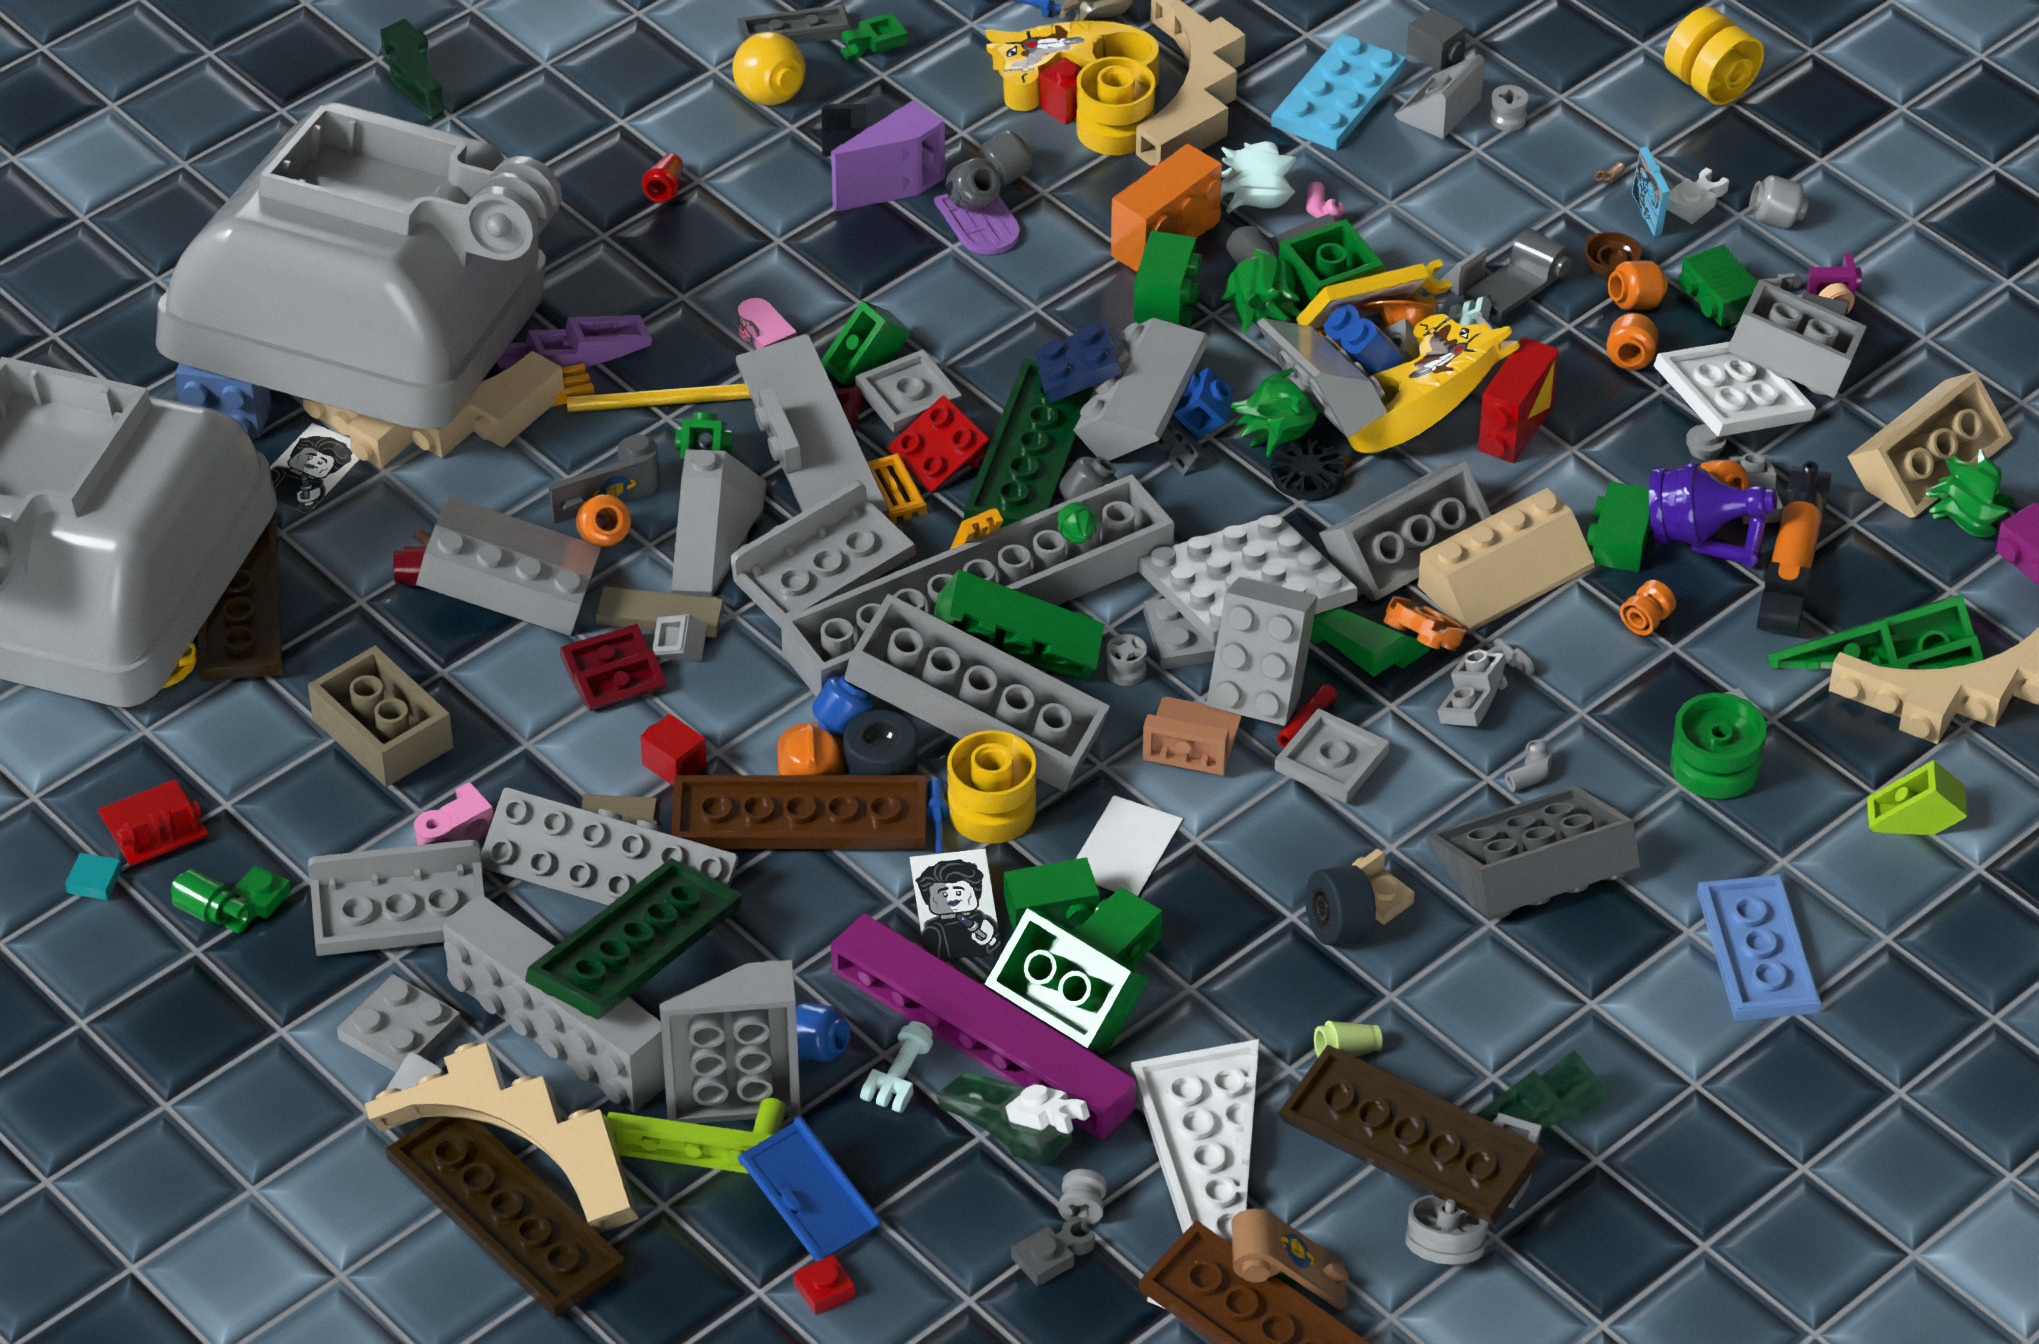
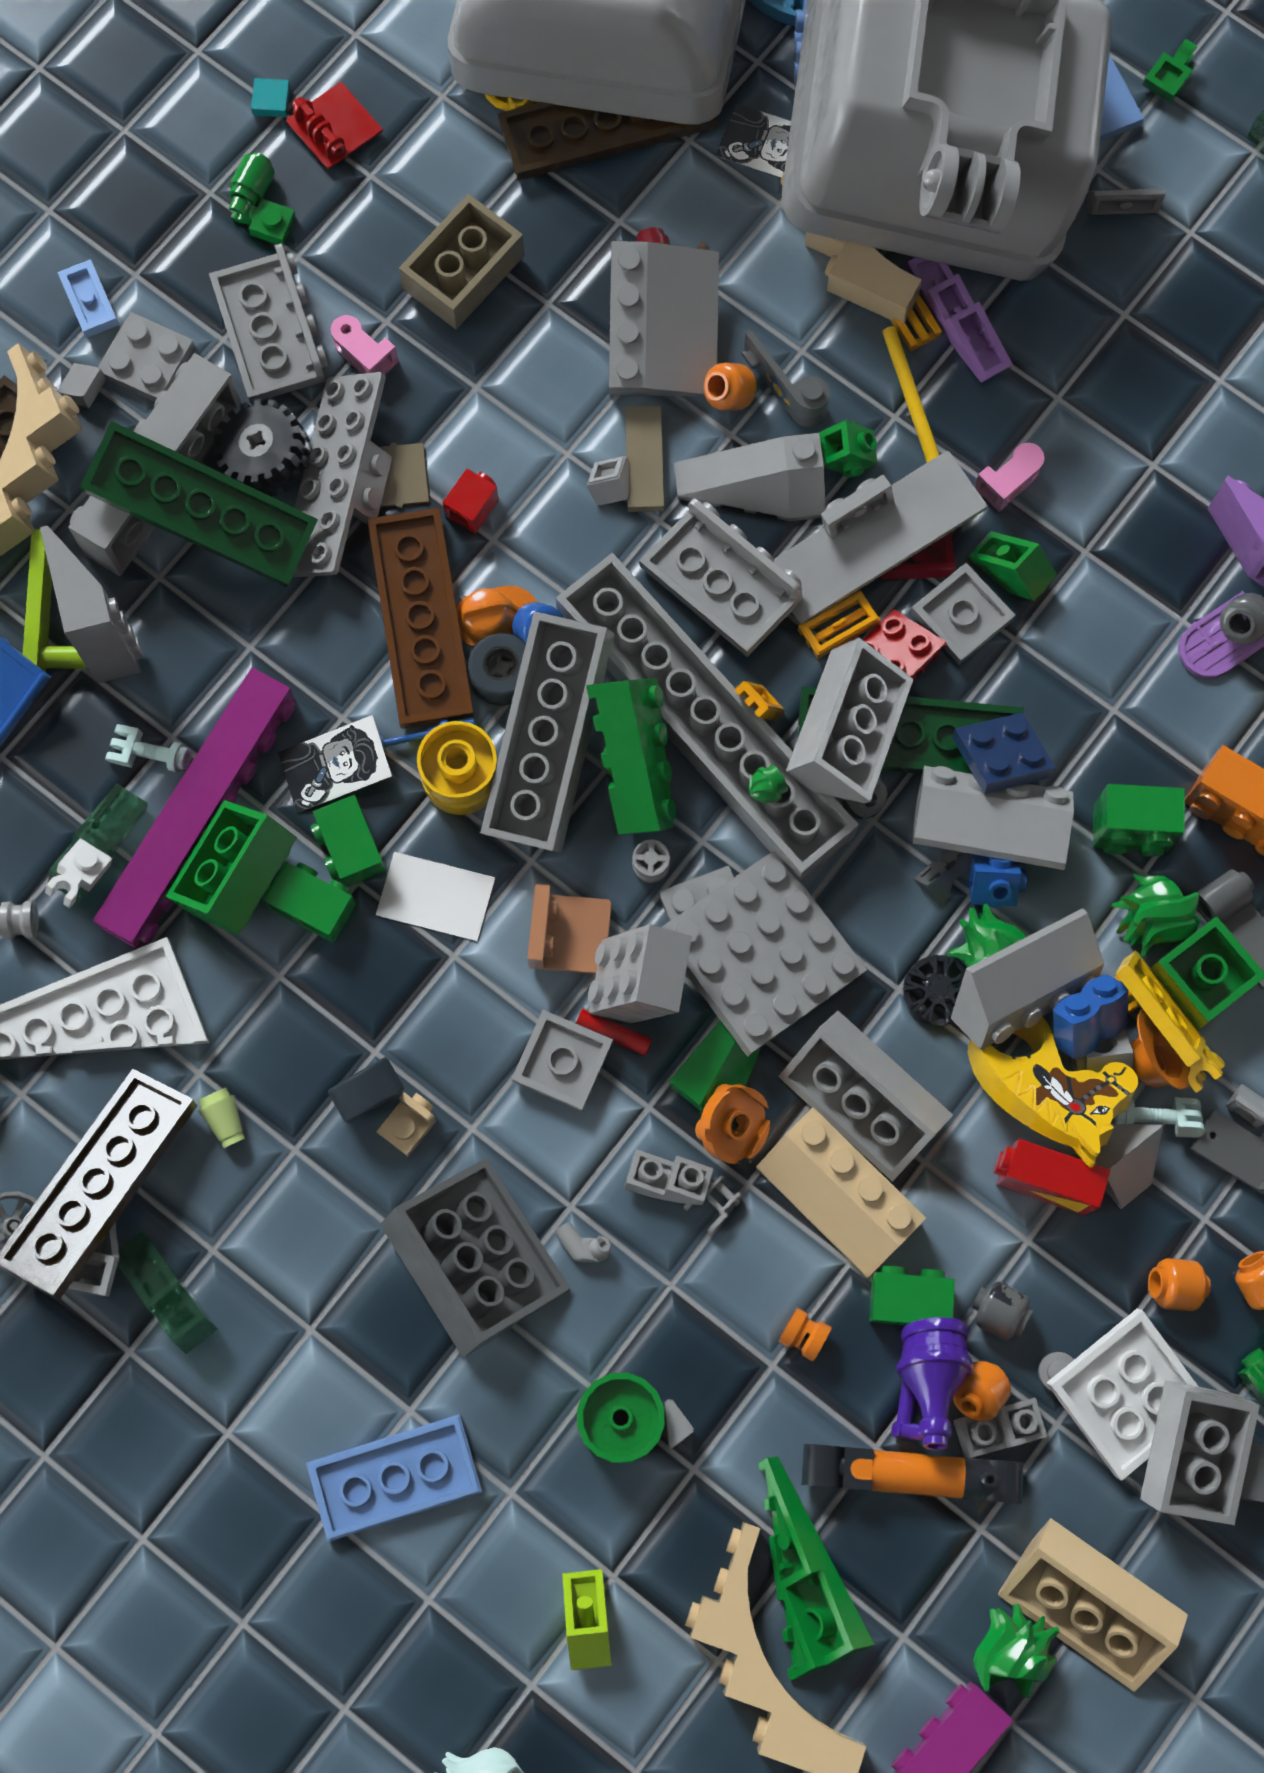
camera: 80 degrees right, 30 degrees up
(306, 1065) = (88, 298): none -> light blue plate
(553, 887) = (268, 464): none -> black wheel
(612, 667) = (568, 435): dark red slope -> none
(663, 178) = (1203, 346): red cone -> none
(821, 1032) = (168, 676): blue head -> none
(1021, 460) = (850, 723): none -> light grey slope
(1640, 457) = (1002, 1311): none -> dark grey head

